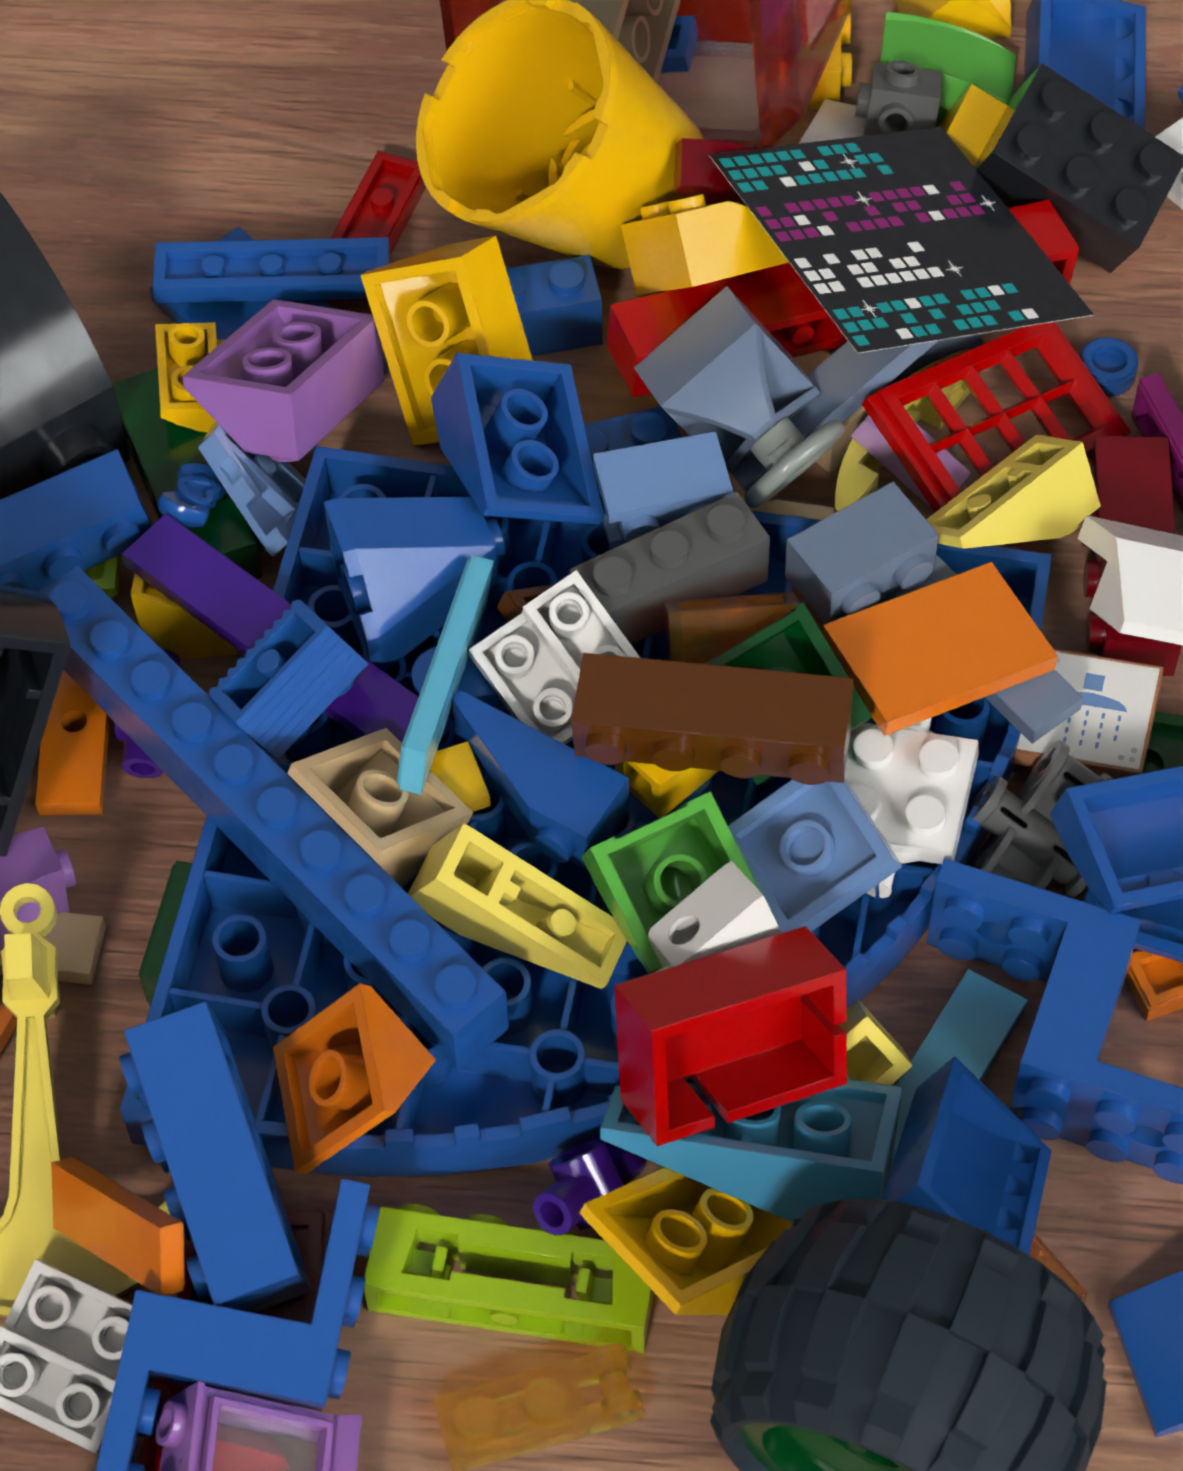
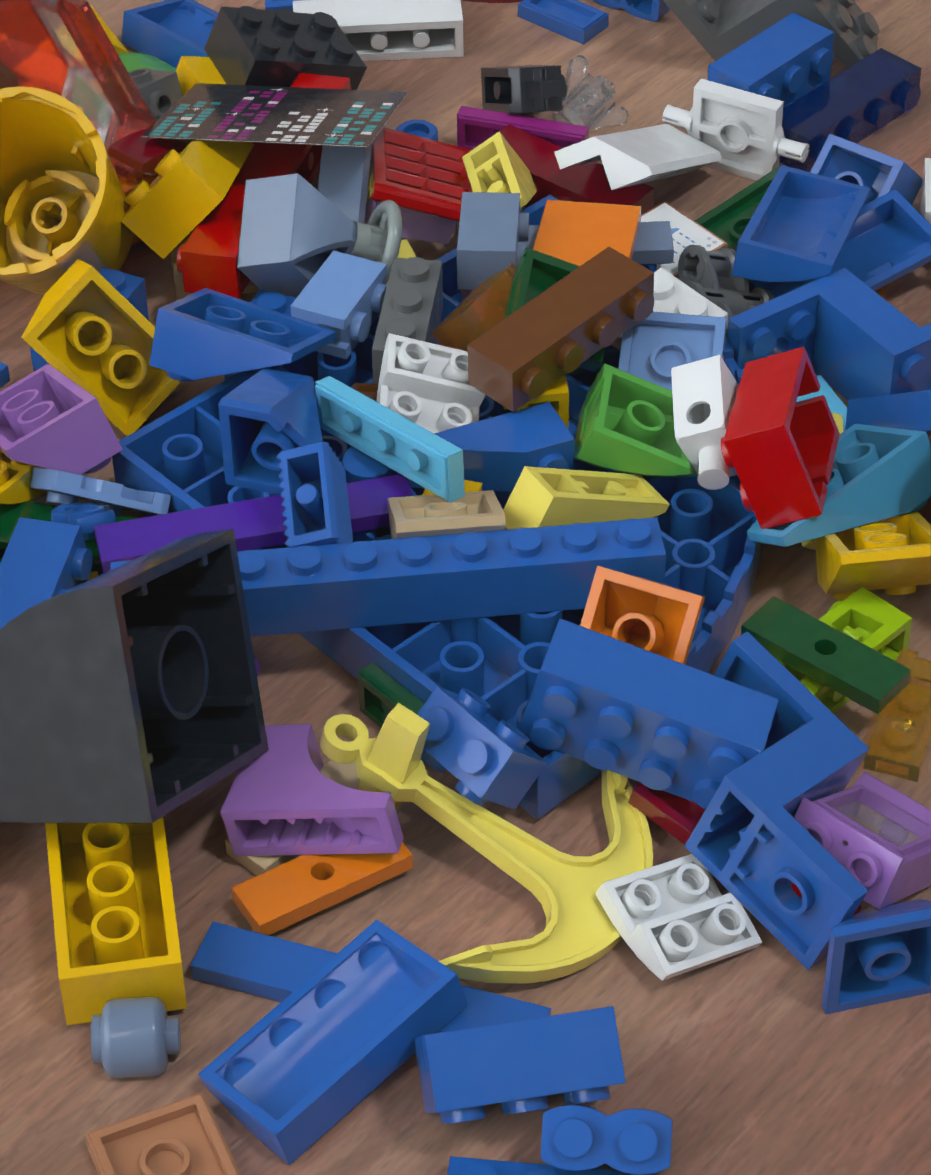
camera: 55 degrees left, 15 degrees down
(84, 1031) = (478, 749): none -> blue brick
(118, 1226) = (639, 797): orange tile -> none
(494, 1238) = (827, 655): none -> dark green tile
(581, 1177) = (786, 588): dark purple axle -> none

